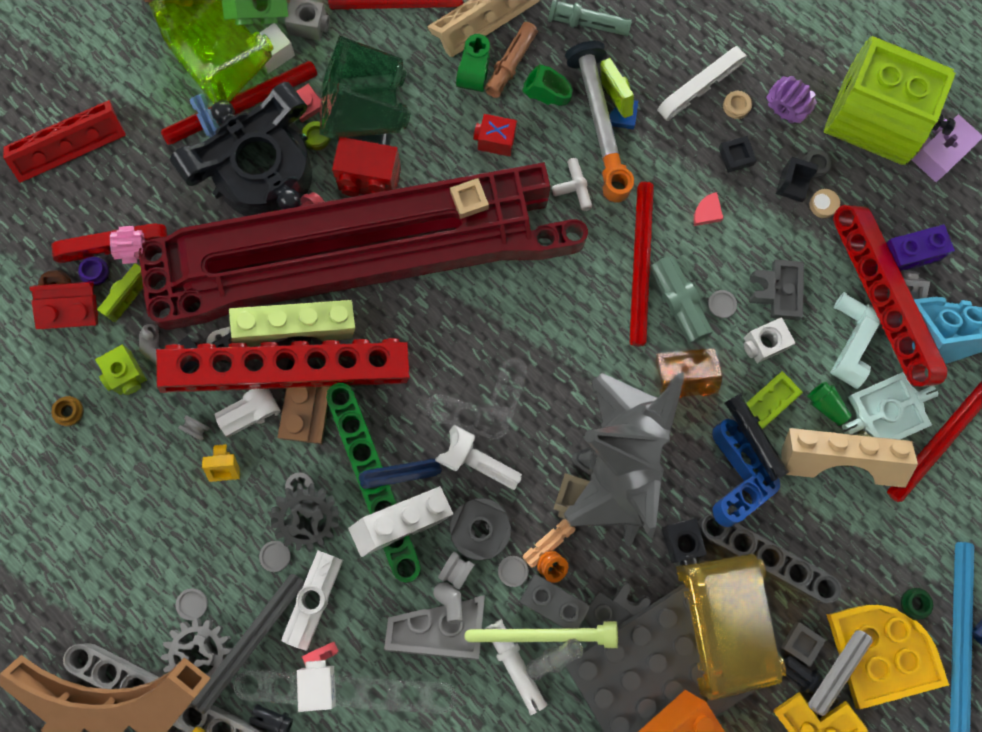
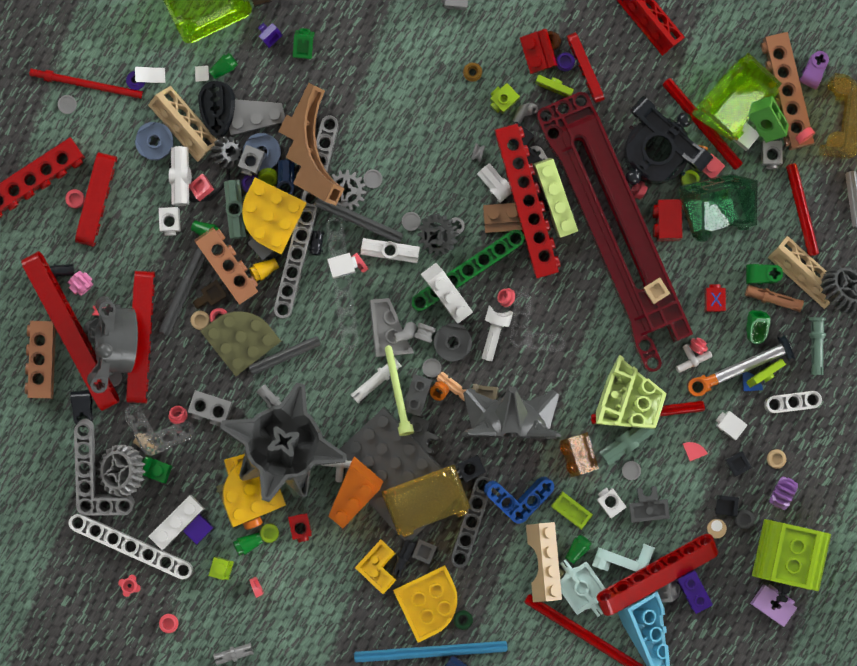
camera: 85 degrees right, 10 degrees up
(126, 244) = (583, 82): bright pink gear -> none
(204, 114) = (682, 107): medium blue axle -> none
(221, 465) = (458, 175): yellow tile -> none
(399, 473) = (475, 286): dark blue axle -> none
(428, 431) = (506, 297): none -> coral plate
(554, 659) = (384, 400): clear pin -> none
(558, 171) = (698, 345): none -> coral plate
(619, 281) = (629, 398): none -> yellowish green wedge
(663, 53) = (801, 398): none -> white beam
(681, 150) = (730, 425): none -> white brick
(701, 83) = (785, 431): white beam -> none
(756, 437) = (545, 502): black pin -> none
(840, 672) = (412, 573): light grey axle -> none

